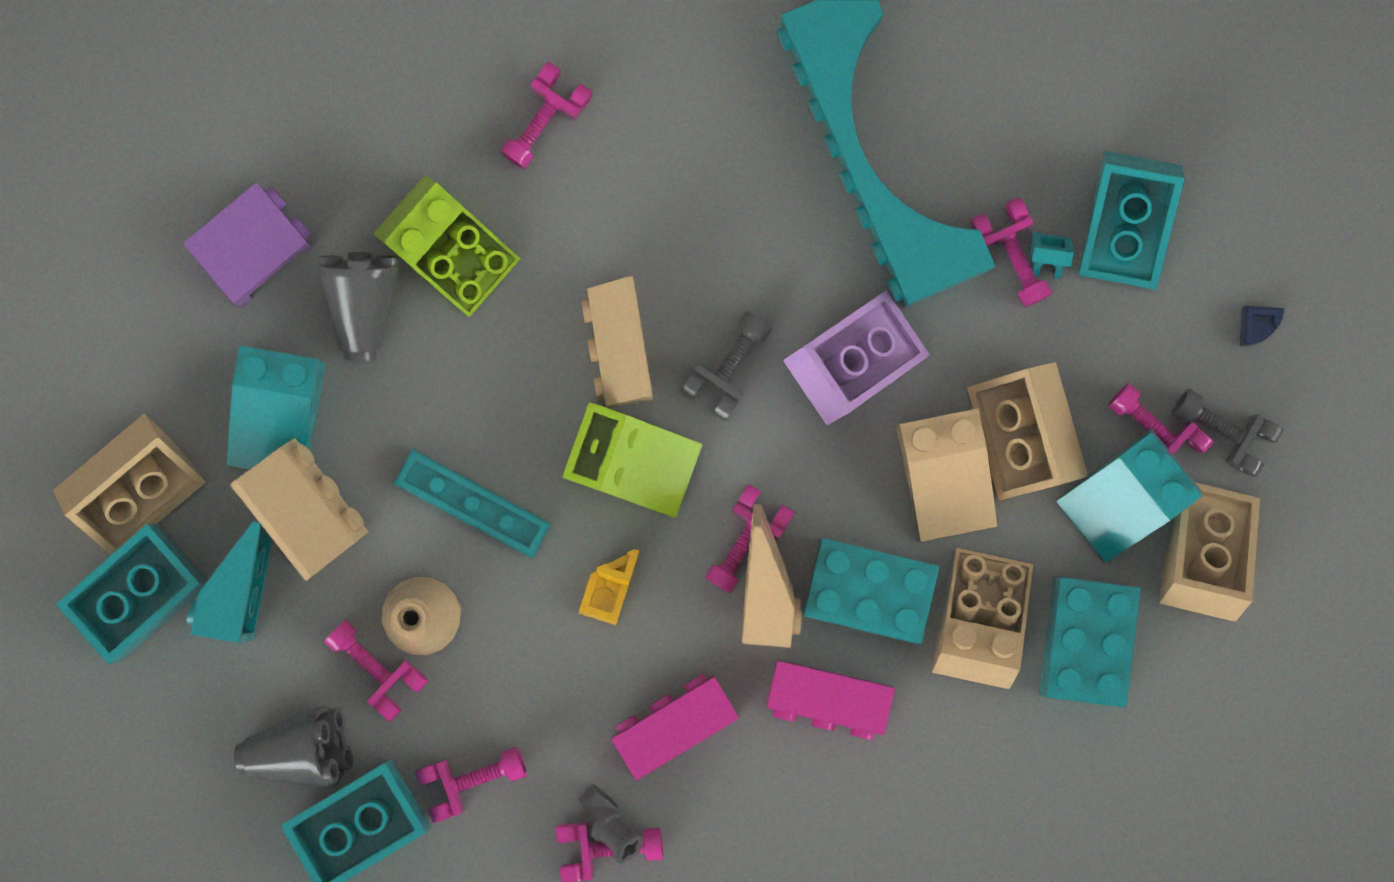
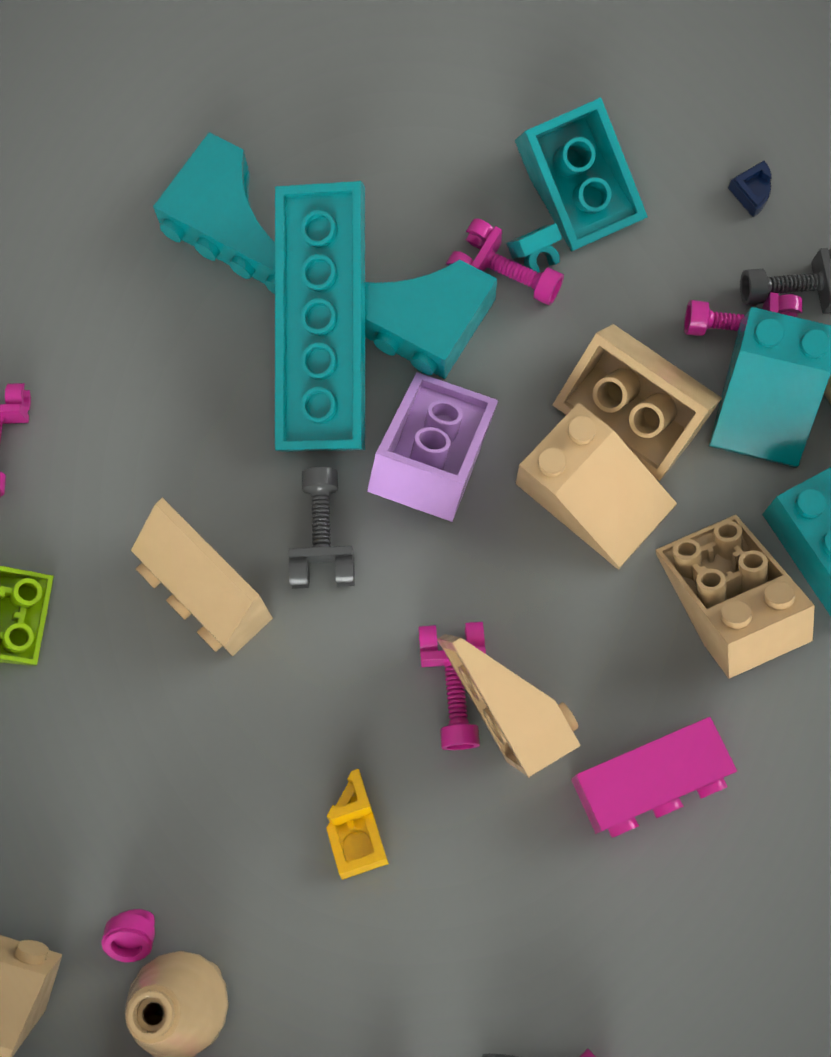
camera: 30 degrees left, 15 degrees down
(418, 550) = (129, 935): none -> dark pink tile
(472, 503) = (156, 845): teal tile -> none
(632, 460) = (285, 684): lime slope -> none
(673, 725) = (521, 925): dark pink brick -> none
(841, 204) = (320, 317): none -> teal plate
(870, 590) = (611, 641): teal brick -> none

